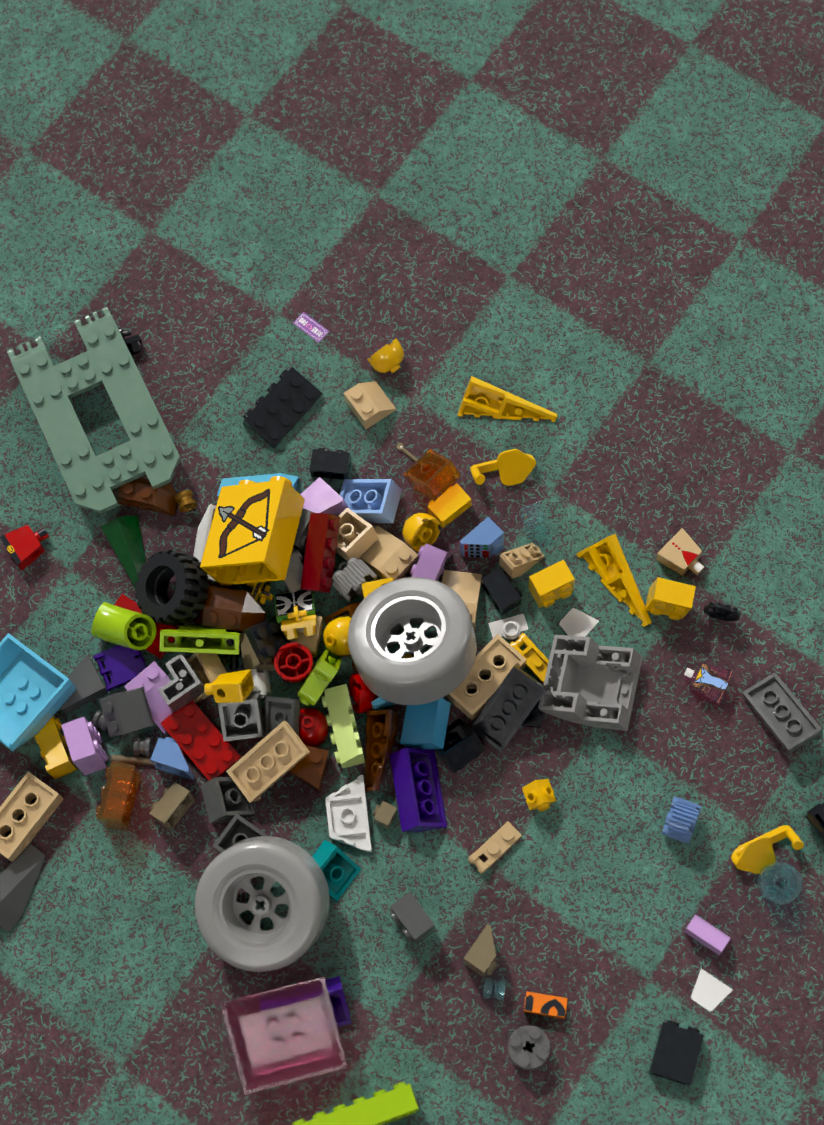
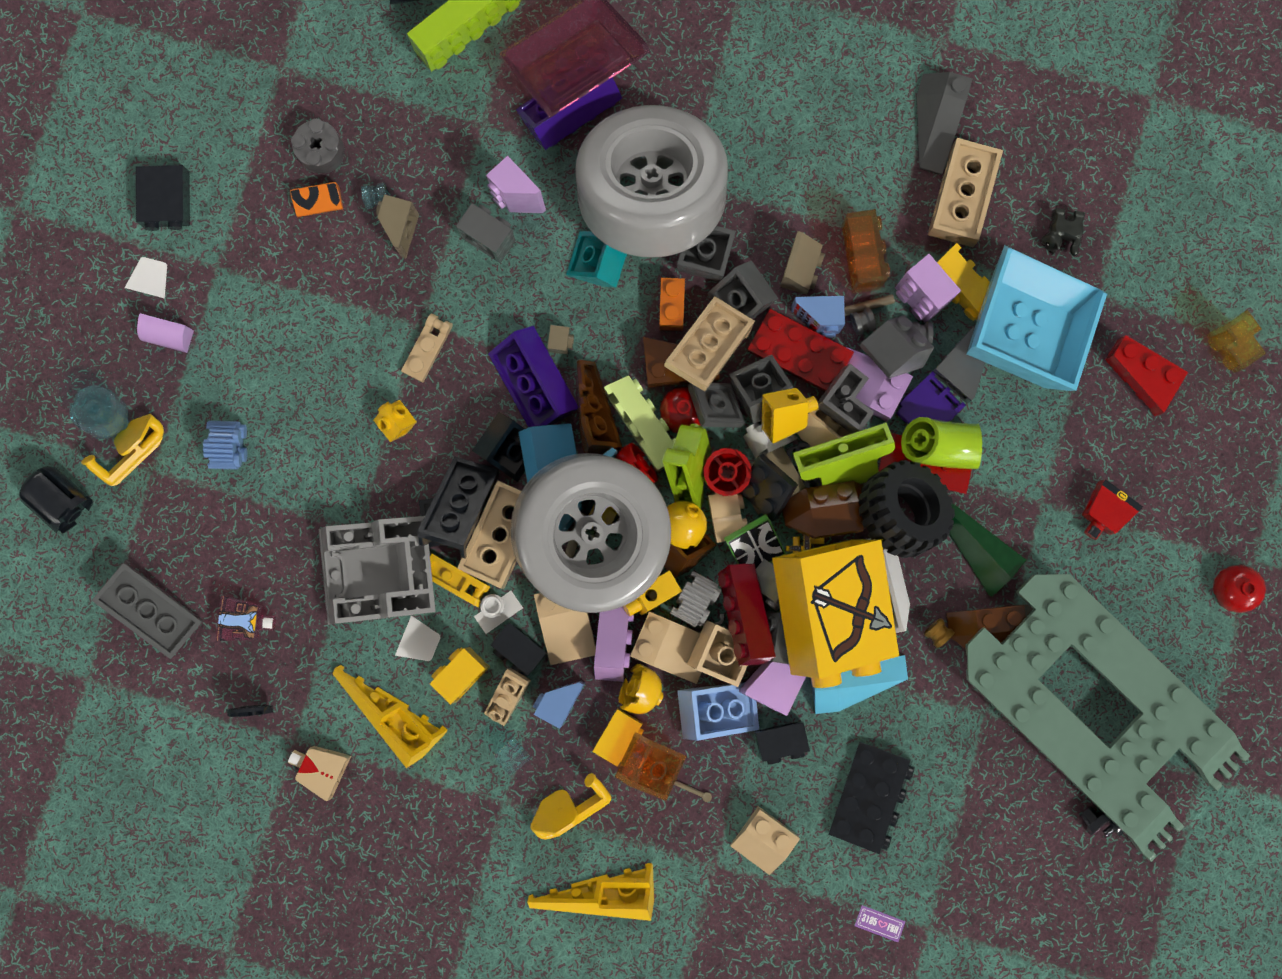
camera: 160 degrees right, 15 degrees up
(285, 811) = (672, 304): none -> orange brick
(308, 622) = (738, 520): yellow hips -> none
(349, 815) = (600, 326): white wing -> none
(378, 944) = (514, 189): none -> lavender slope
(387, 357) = (764, 910): yellow cylinder -> none
(670, 598) = (313, 703): yellow brick -> none

